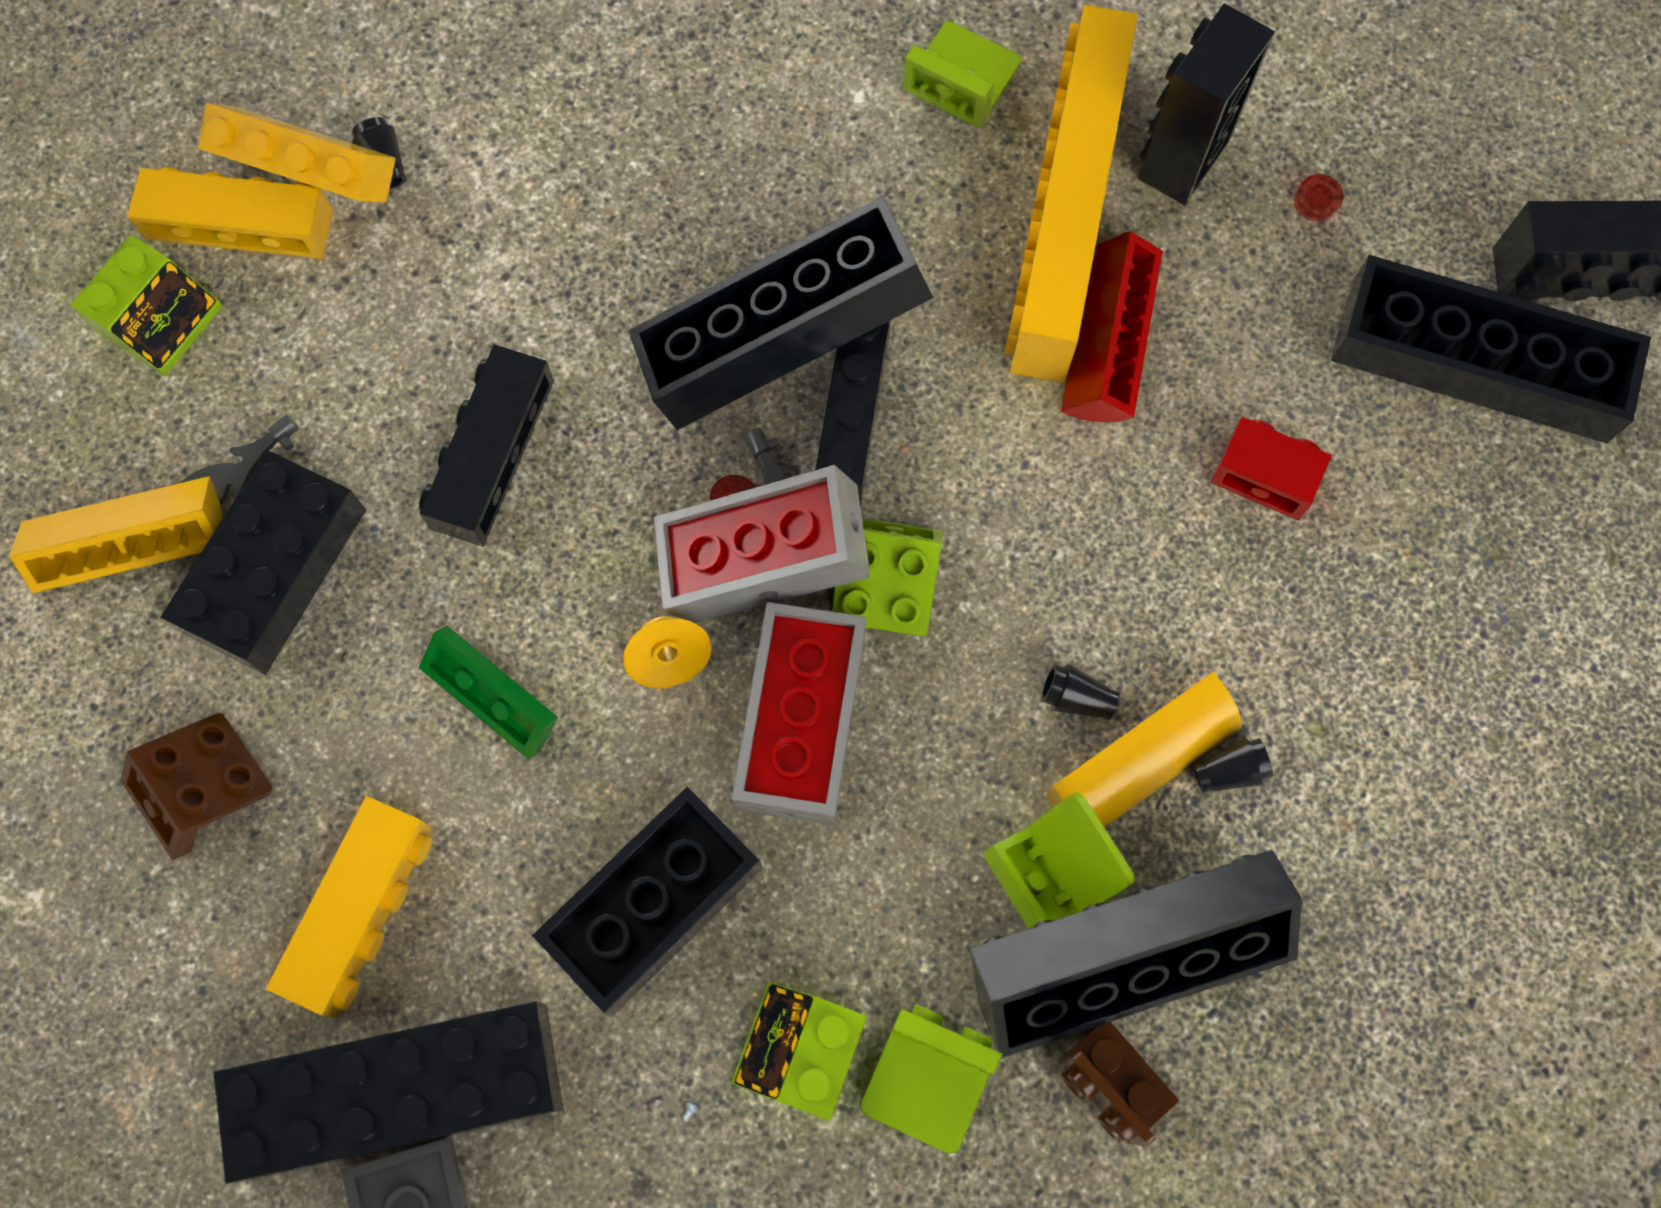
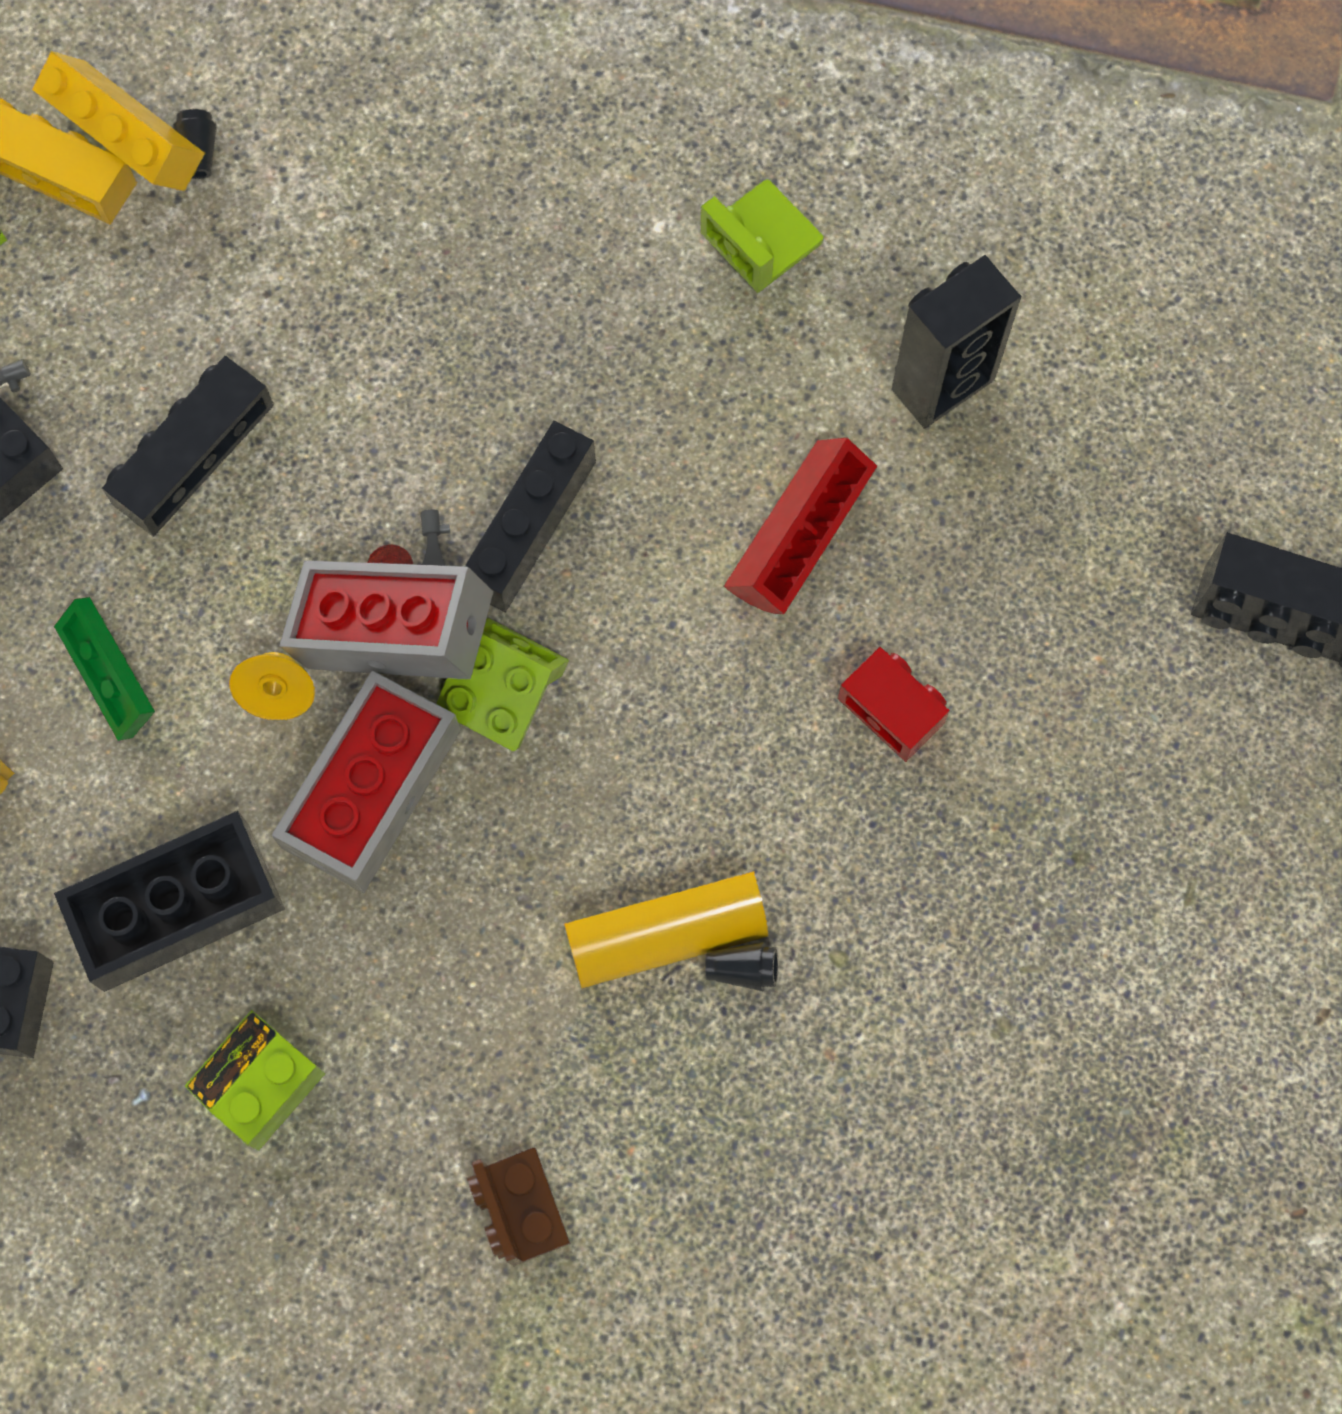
camera: 20 degrees right, 0 degrees up
(779, 314) = (486, 411): black brick -> none
(930, 1079) = (355, 1144): lime bracket -> none
(1059, 863) = (539, 999): lime bracket -> none
(1070, 194) = (808, 384): yellow brick -> none
(1078, 693) = (629, 850): black cone -> none
(1137, 952) = (574, 1096): black brick -> none
(1318, 197) = (1054, 462): clear red tile -> none
(1492, 349) = (1147, 661): black brick -> none

